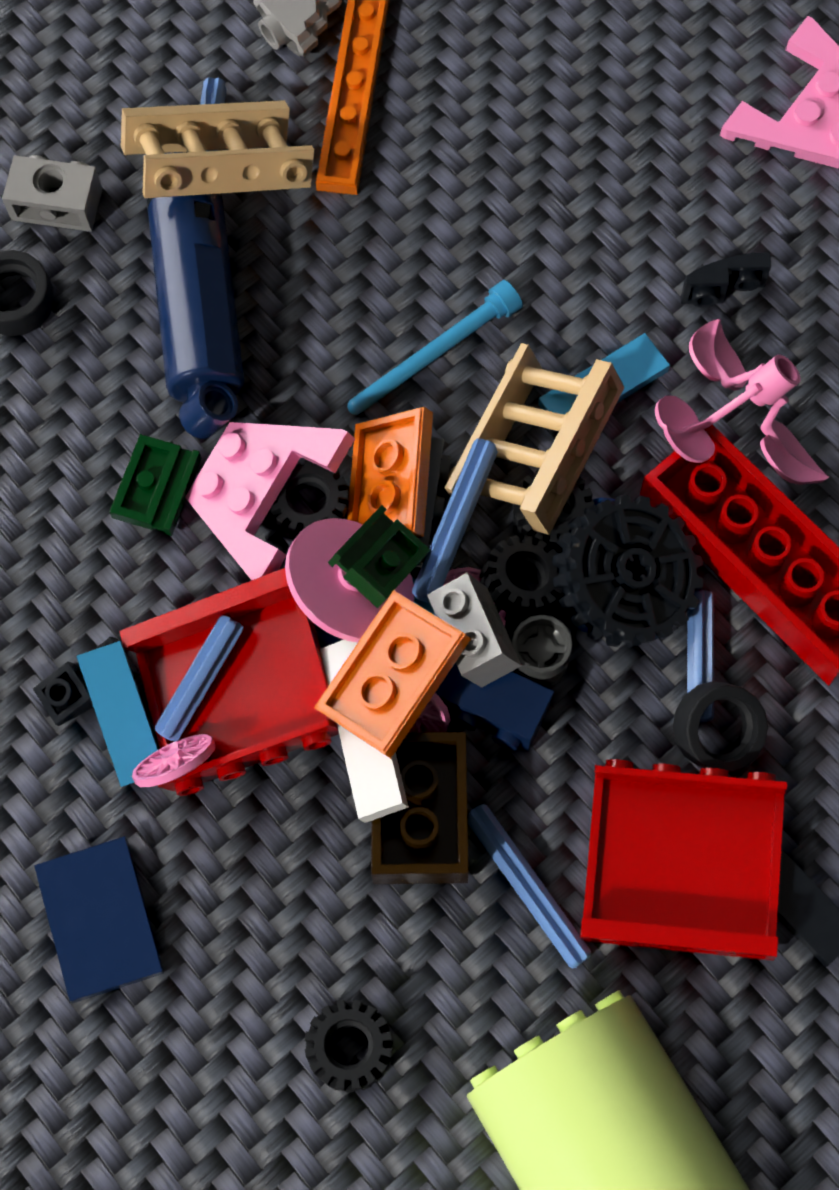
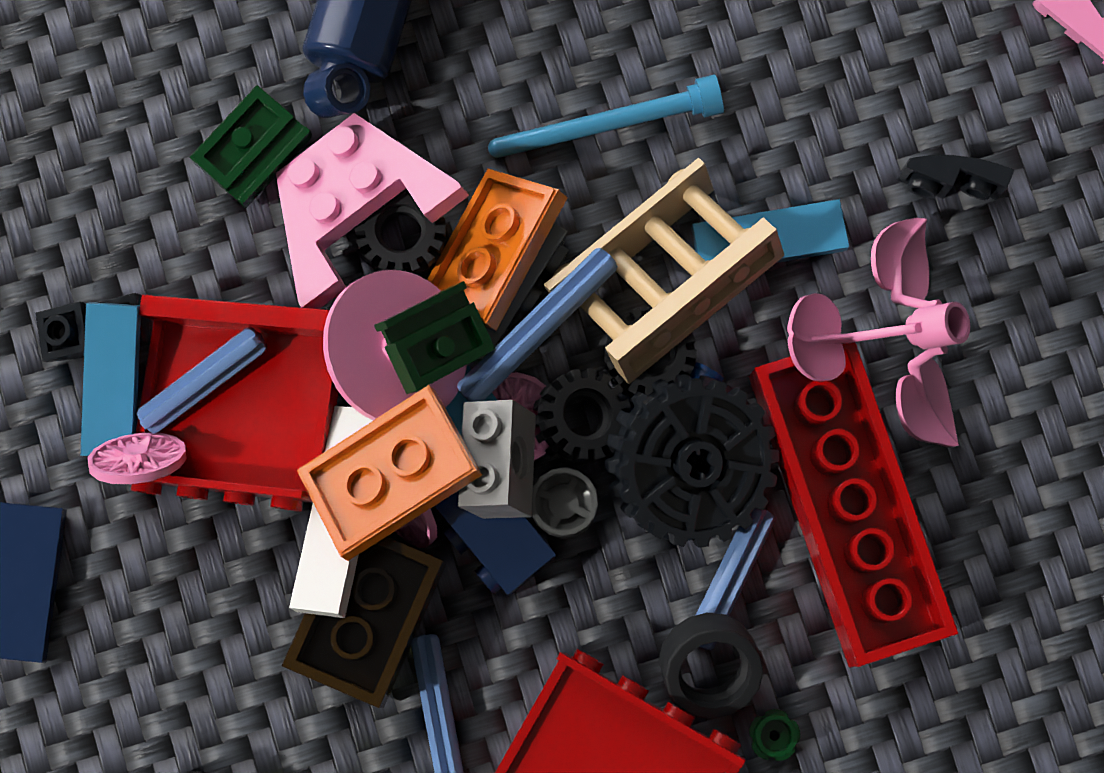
camera: 20 degrees right, 10 degrees up
(805, 756) = (788, 735): none -> dark green plate

